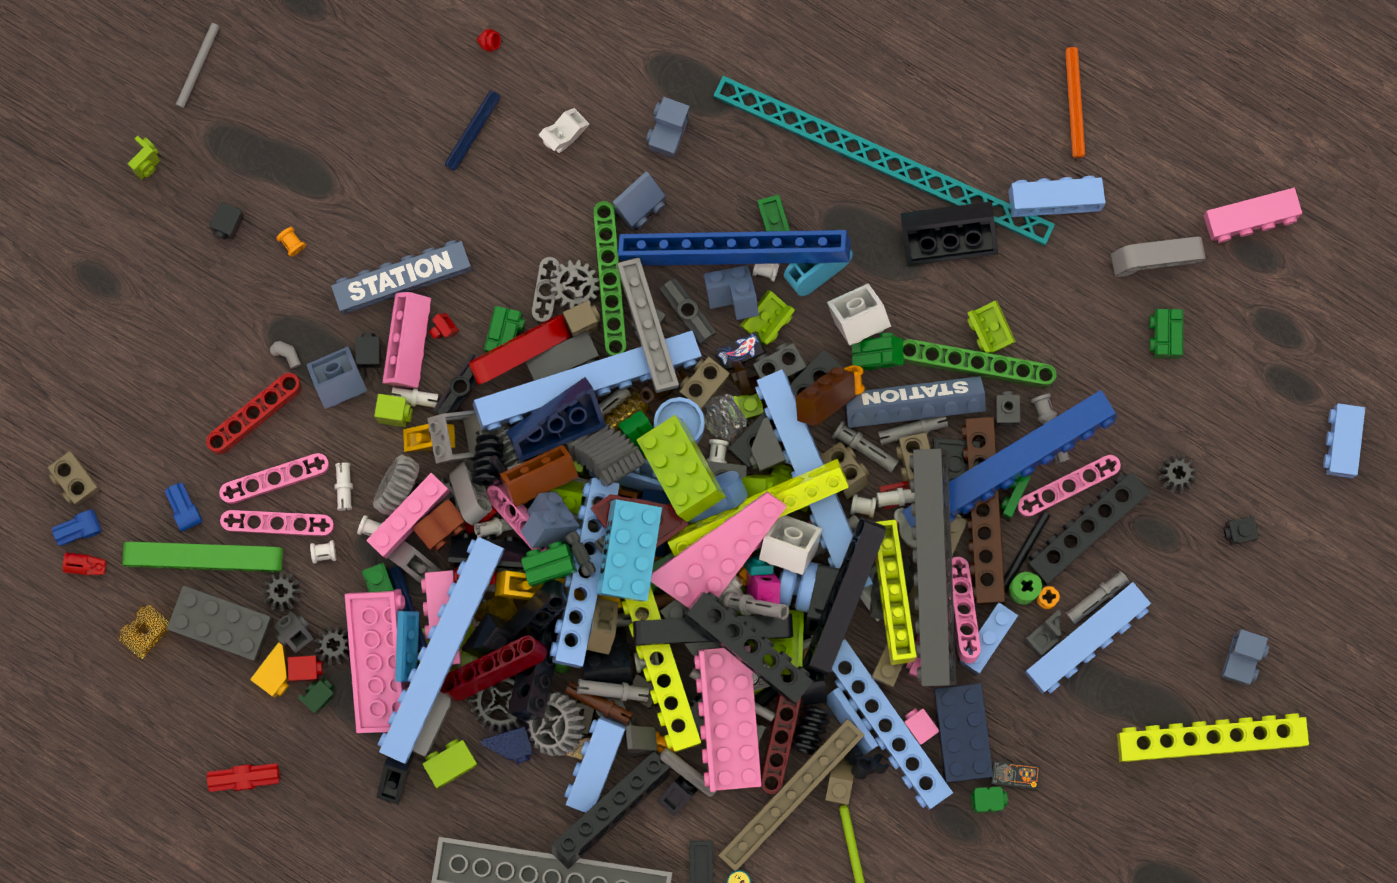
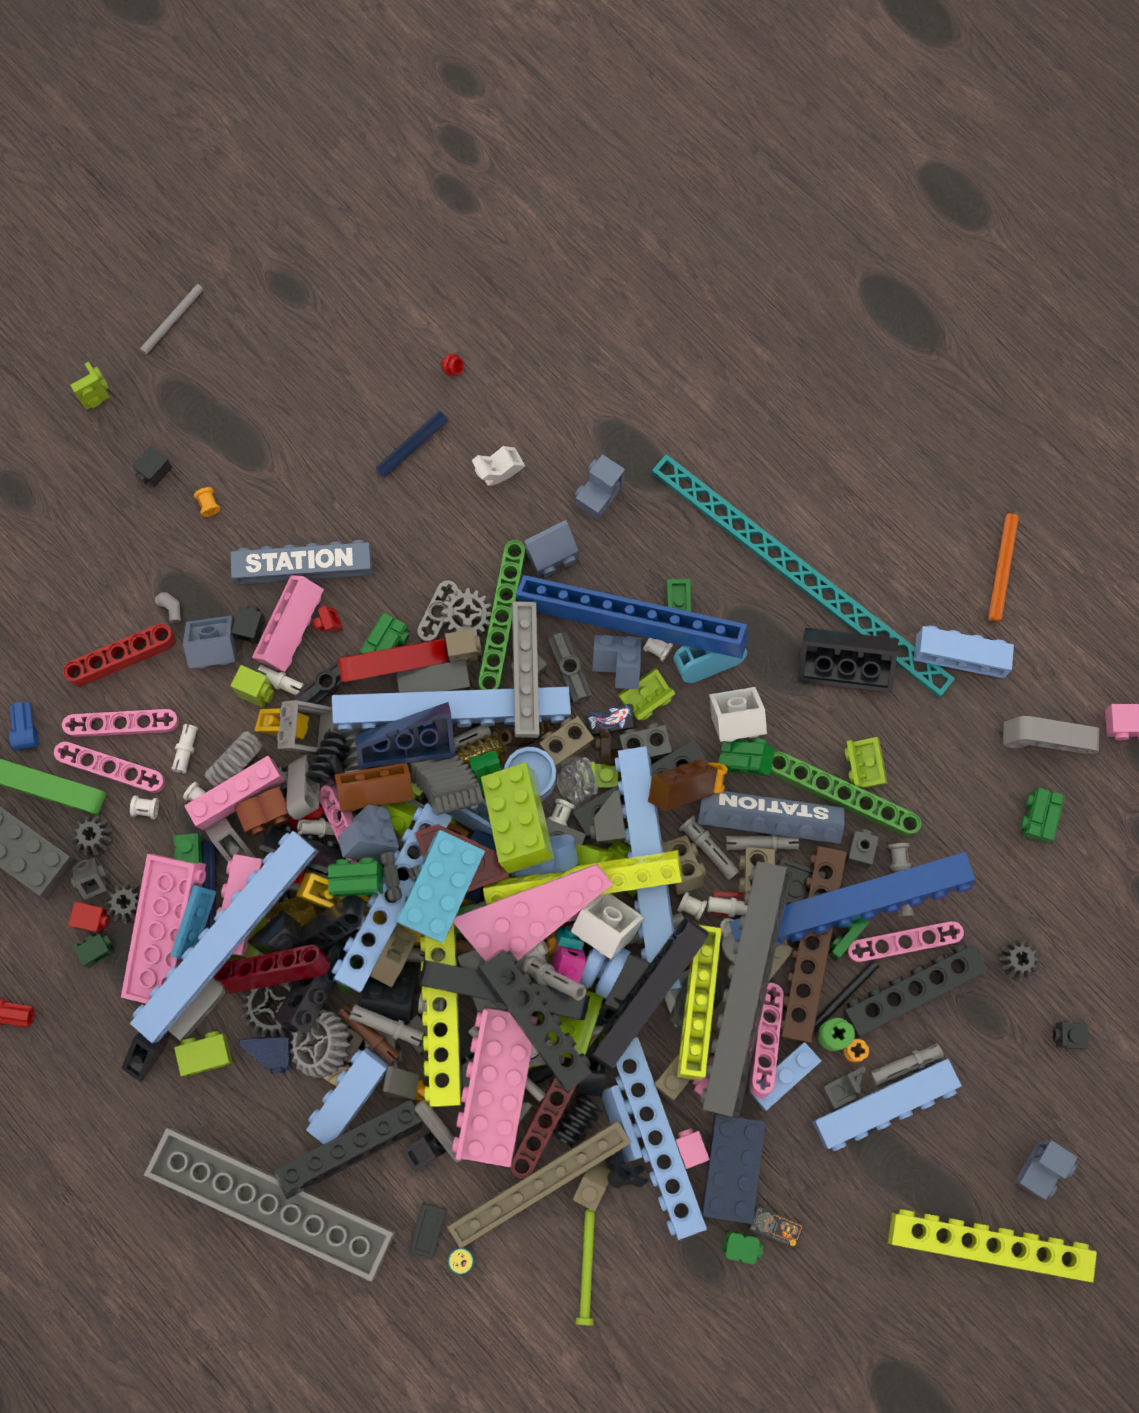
camera: 15 degrees right, 5 degrees down
(273, 672) = (55, 914): yellow slope -> none

